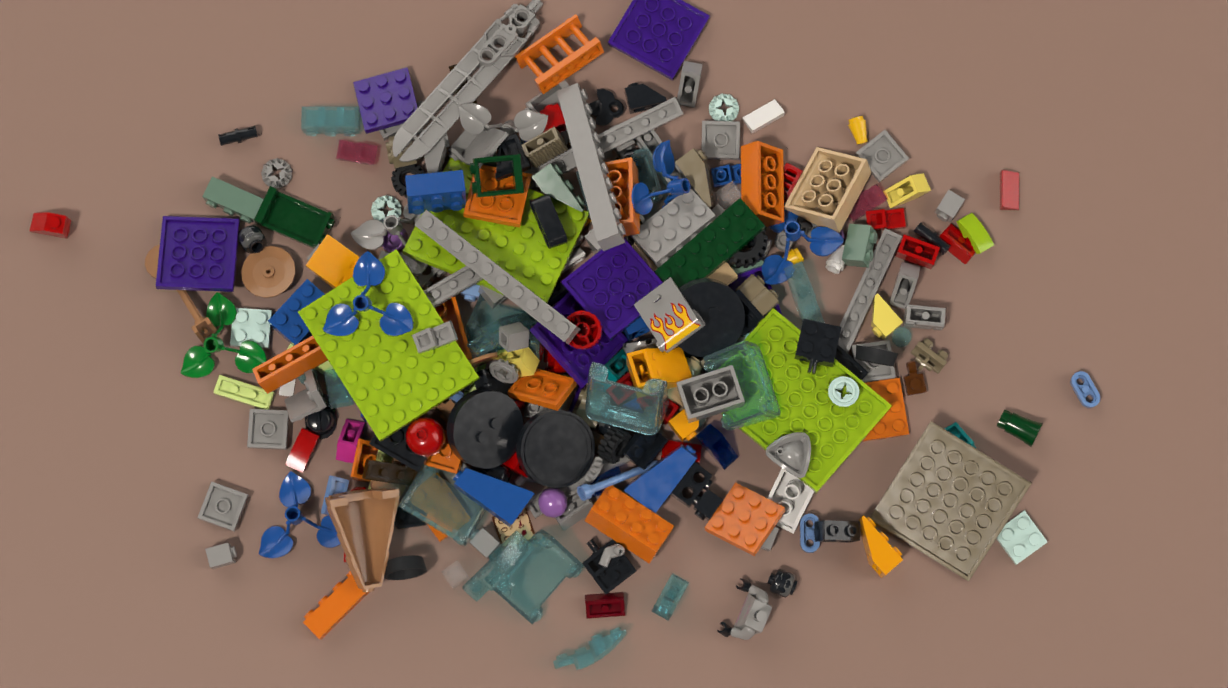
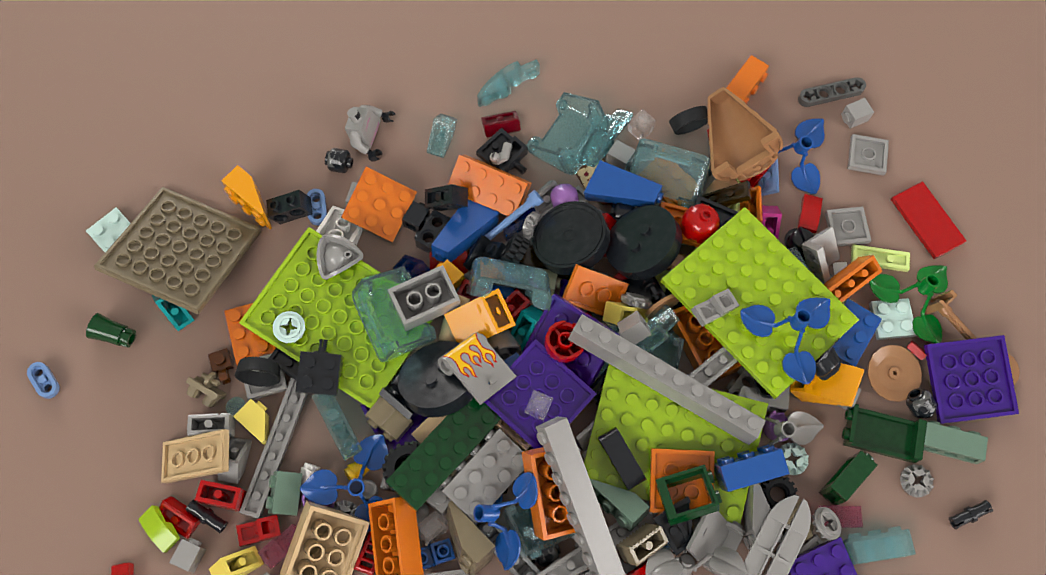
camera: 170 degrees right, 10 degrees down
(182, 425) = (928, 220): none -> red tile
(238, 585) = (830, 89): none -> dark grey beam
(240, 292) = (916, 350): none -> tile
(337, 275) = (828, 364): none -> black piece
(342, 179) = (848, 478): none -> dark green window
(367, 141) = (833, 528): none -> light grey gear
(617, 272) = (538, 405): none -> clear brick
(675, 510) = (446, 197): none -> black brick
(939, 288) = (195, 456): none -> tan tile

